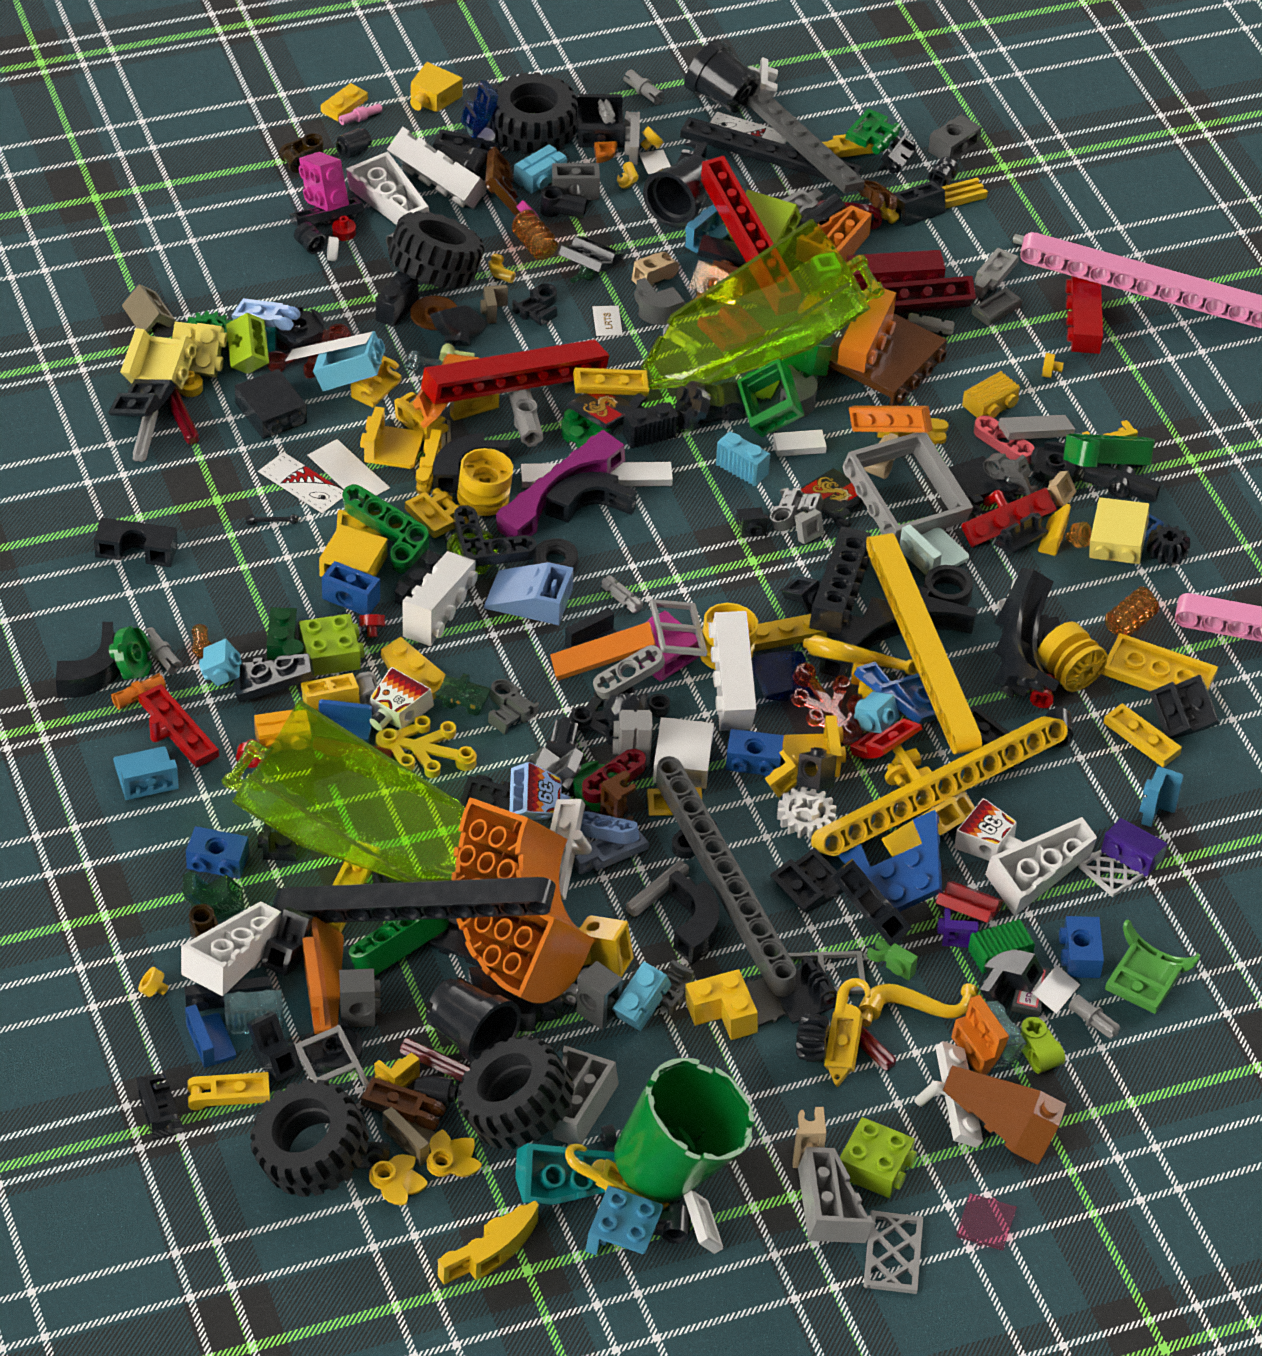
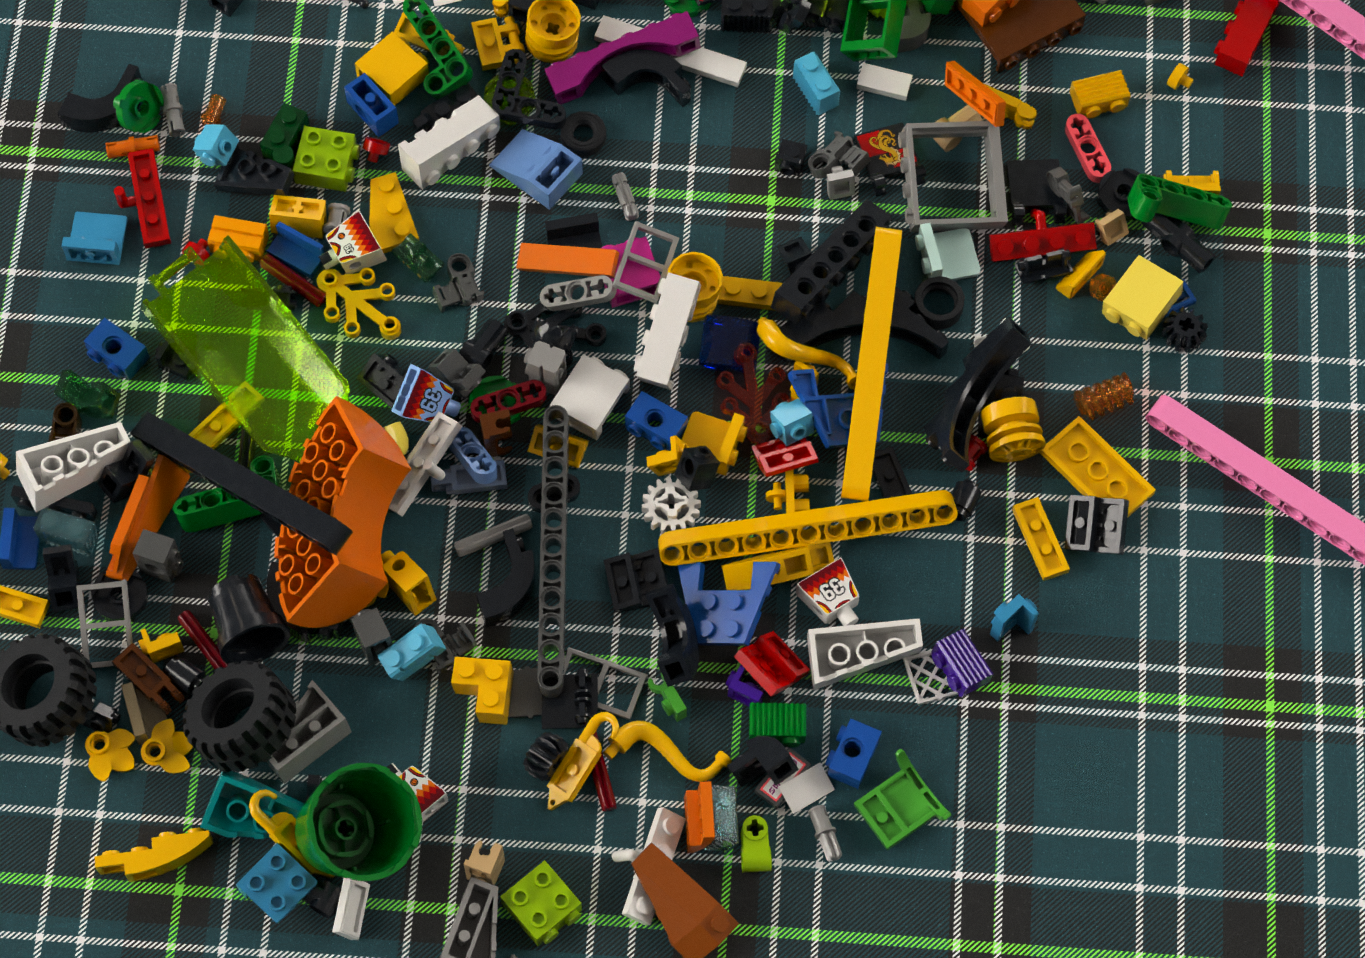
camera: 25 degrees right, 20 degrees up
(1036, 427) = (1125, 146): light grey tile -> none

